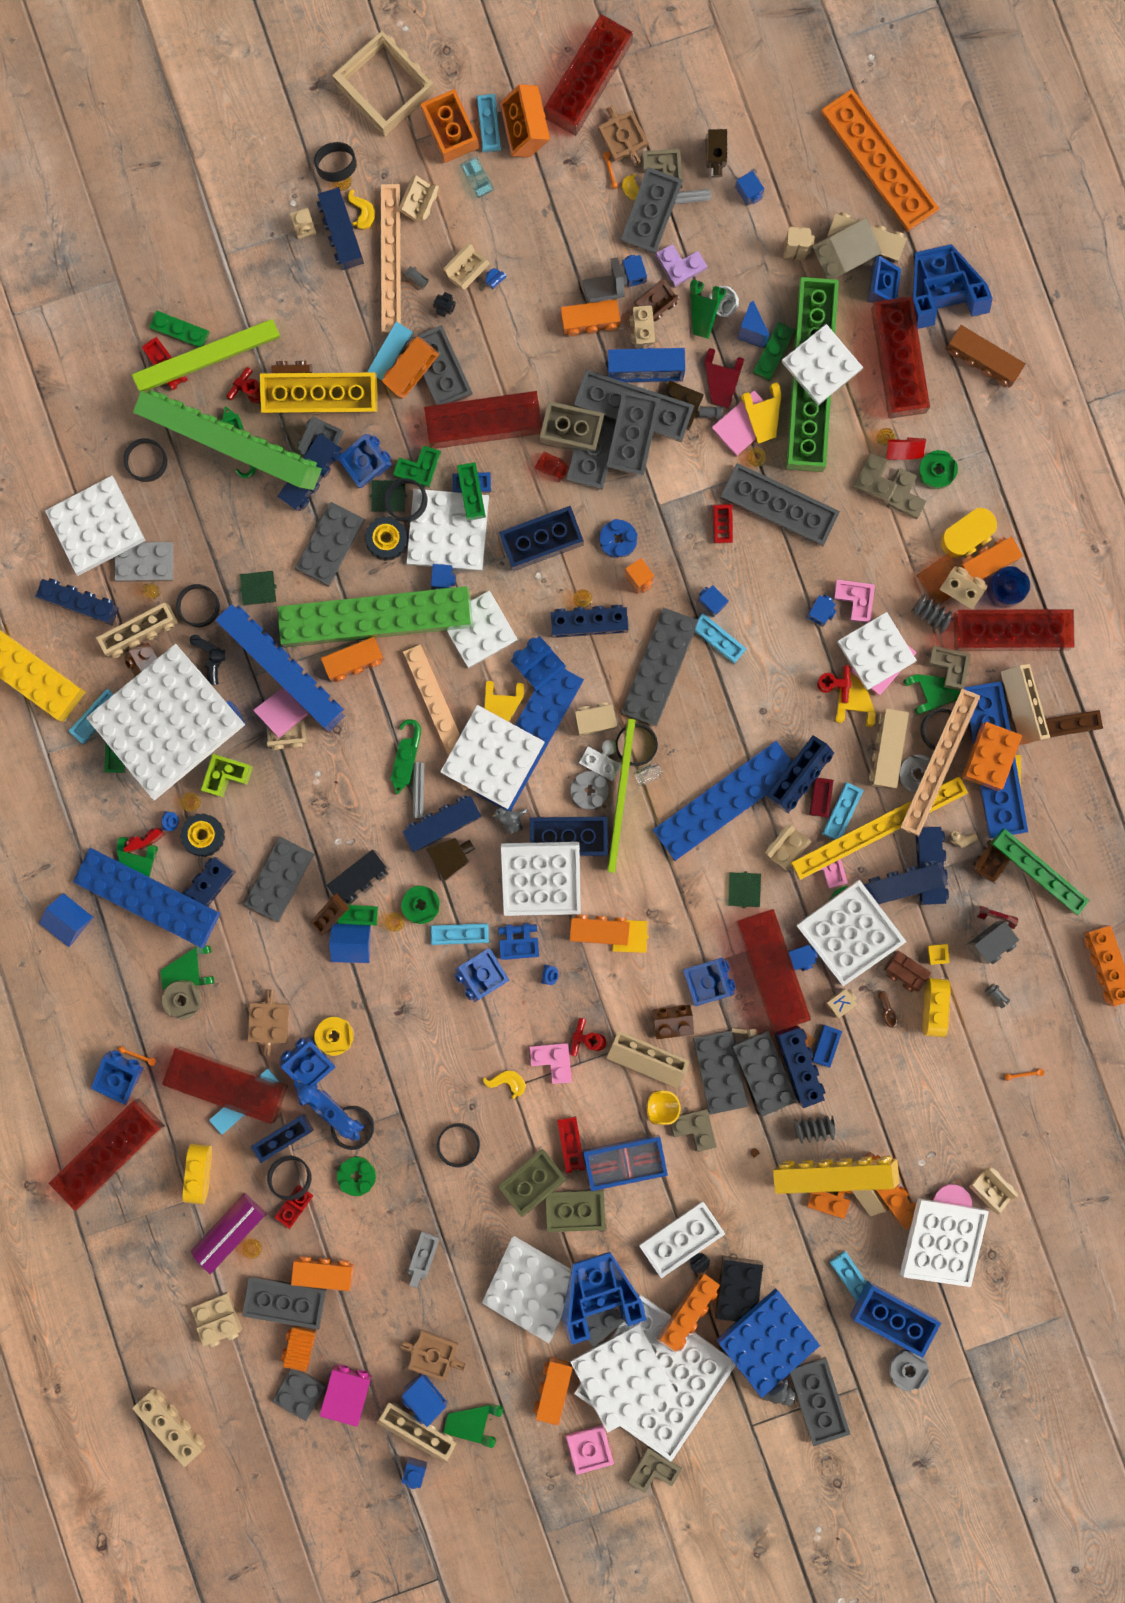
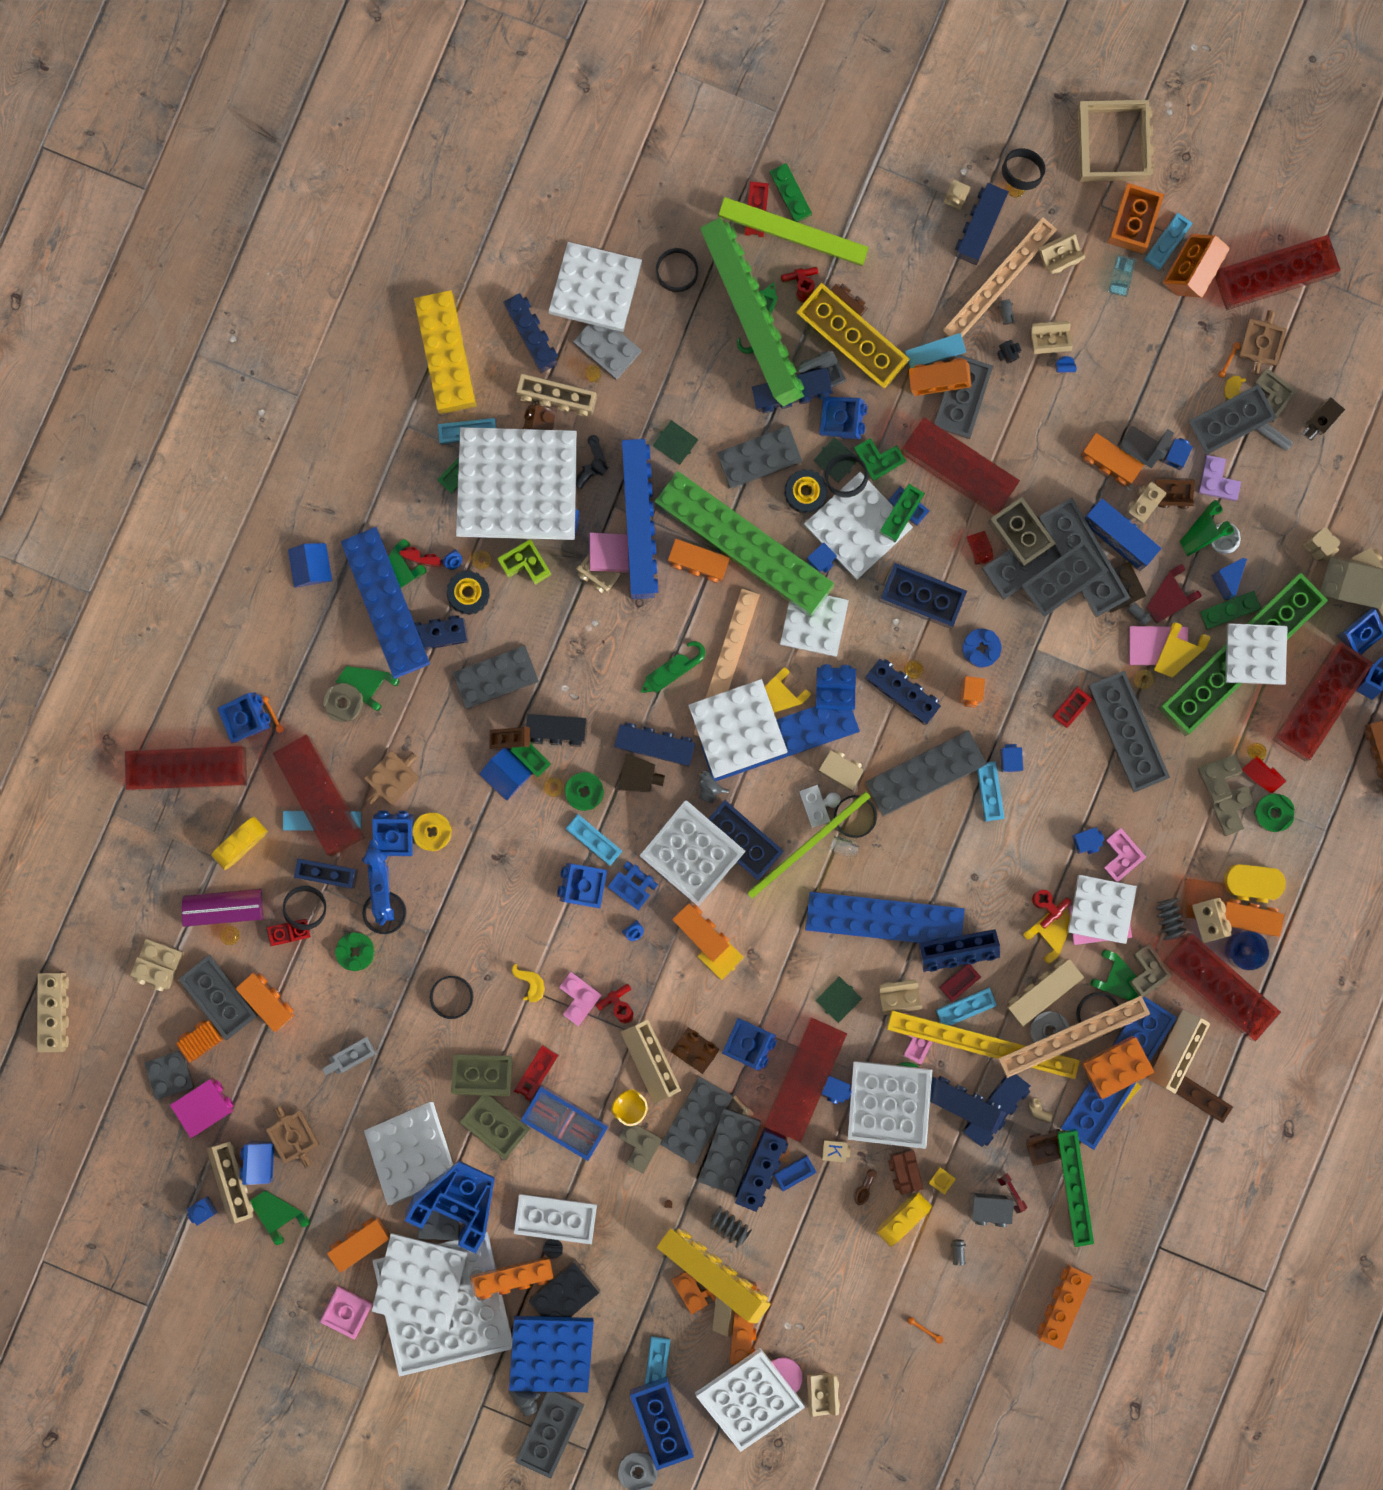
camera: 40 degrees right, 0 degrees up
(182, 594) = (616, 396): black tyre -> none
(367, 214) = (1010, 232): yellow piece -> none
(418, 790) = (659, 703): light grey axle -> none
(580, 796) = (790, 808): light grey plate -> none
(653, 1465) = (384, 1367): dark tan plate -> none
(750, 188) = (1324, 469): blue brick -> none

